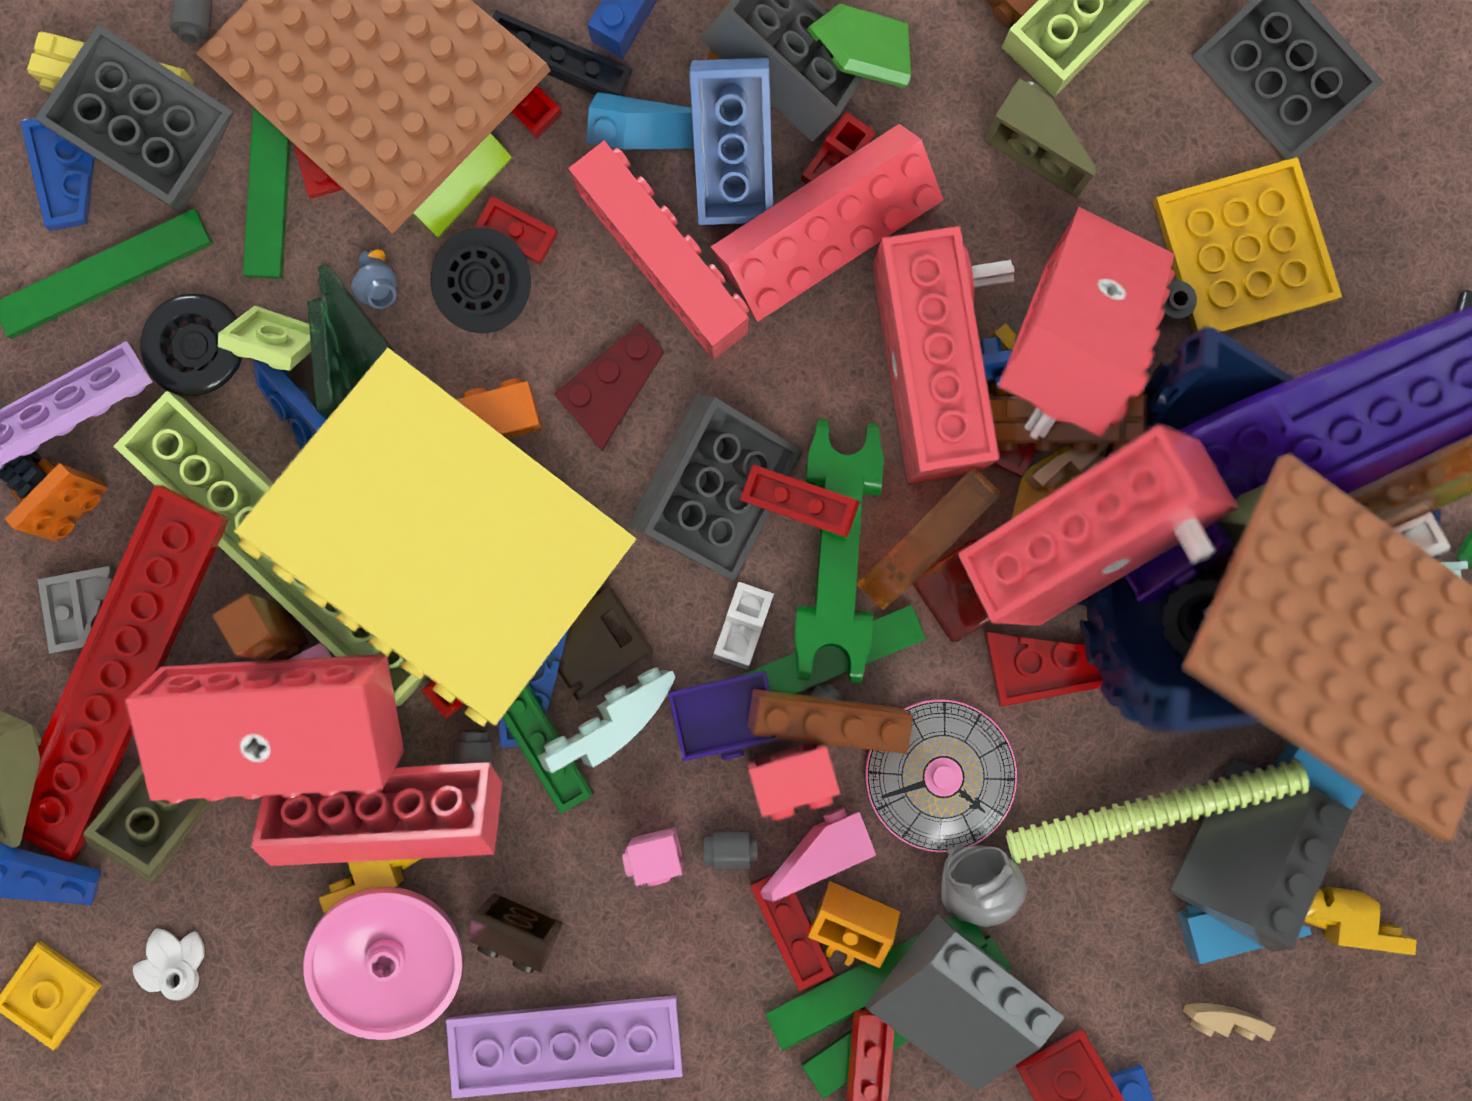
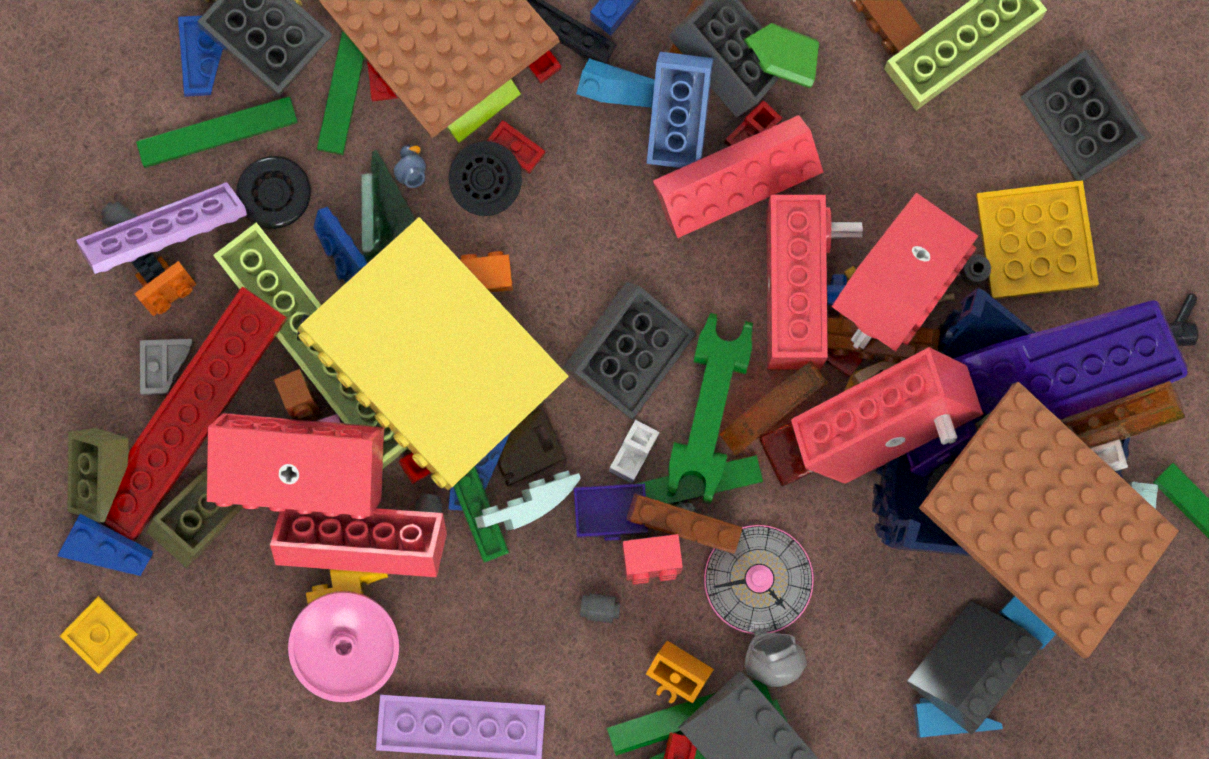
camera: 10 degrees right, 5 degrees down
(167, 958) = (188, 622): white plate -> none
(267, 338) = (331, 196): yellowish green plate -> none
(514, 933) = (438, 640): dark brown slope -> none
(609, 384) = (565, 266): dark red wing -> none
(654, 857) = (546, 601): bright pink brick -> none
(659, 249) = (616, 177): coral brick -> none
(791, 931) = (634, 670): red plate -> none
(800, 501) = (687, 367): red plate -> none
(823, 852) = (669, 616): bright pink slope -> none
(1037, 668) = (838, 514): red wing -> none
(1040, 138) = (894, 135): olive slope -> none
(1159, 810) = (905, 625): yellowish green piece -> none
(1354, 921) = (1034, 725): yellow plate -> none

